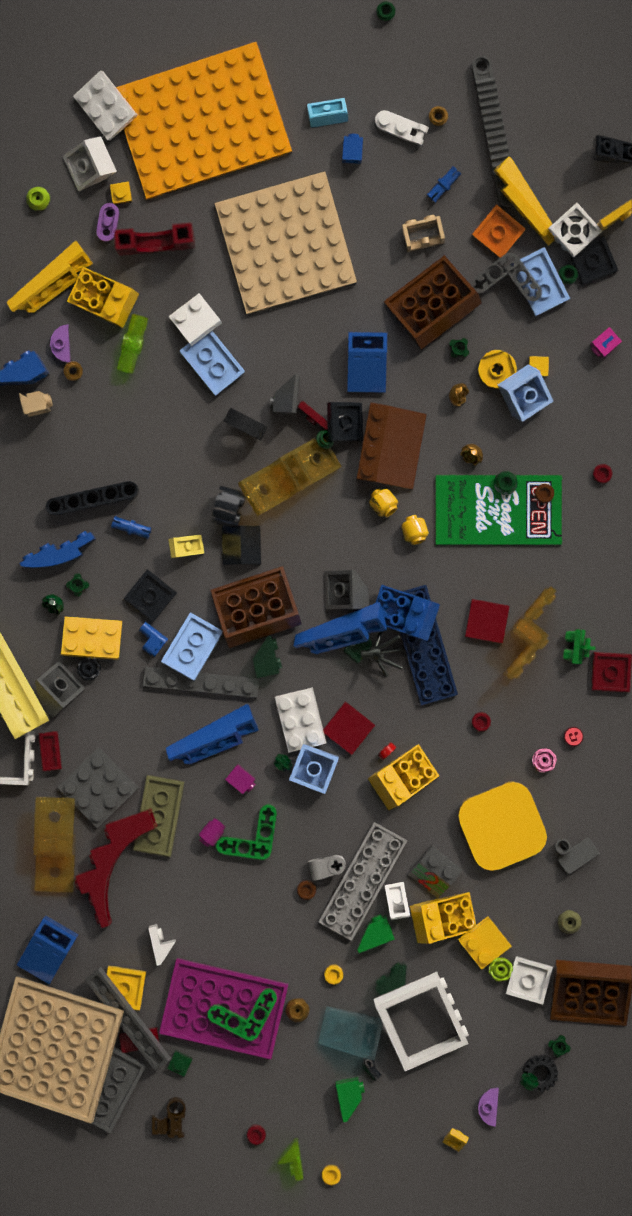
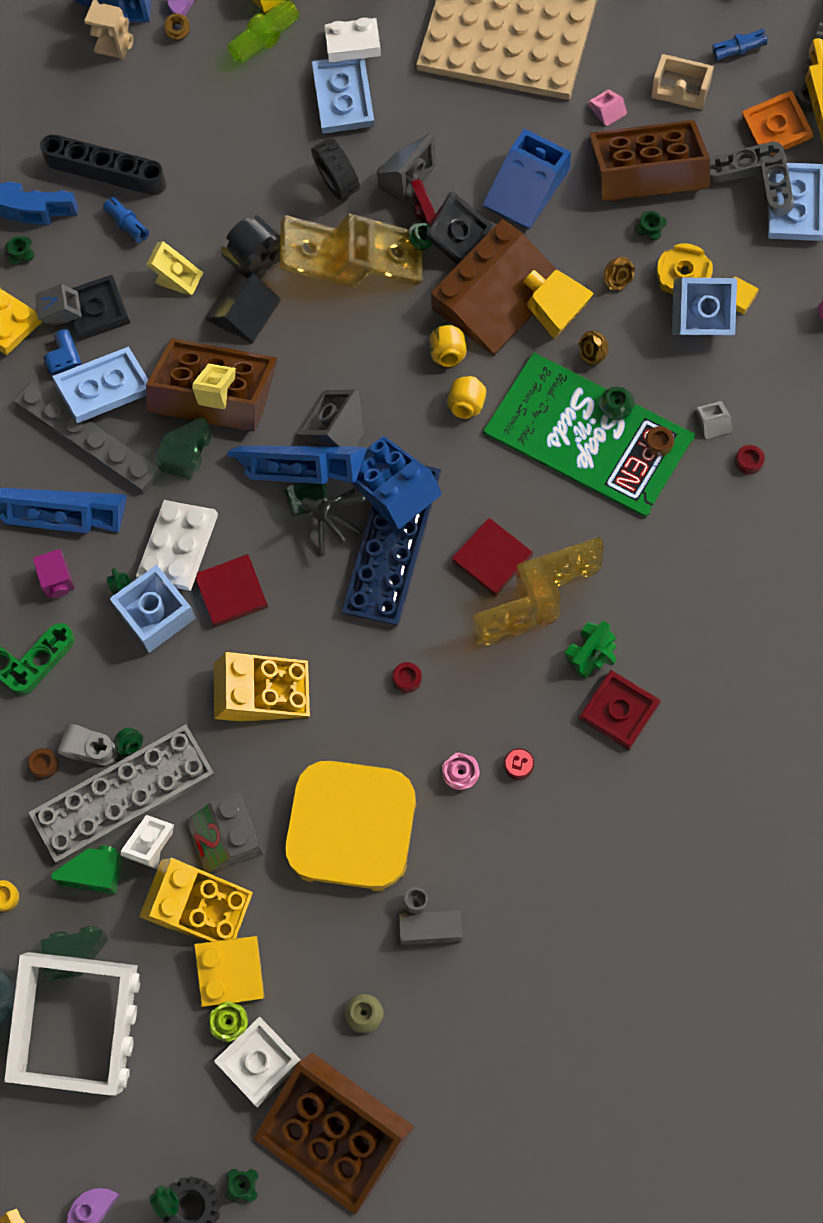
camera: 35 degrees right, 20 degrees down
(131, 612) = (57, 305): none -> dark grey brick
(267, 614) = (212, 385): none -> light yellow slope
(348, 851) = (128, 741): none -> dark green plate
(384, 275) = (608, 107): none -> bright pink slope
(387, 750) = (260, 642): red tile -> none
(432, 436) = (556, 300): none -> yellow torso
(567, 458) = (714, 419): none -> light grey slope

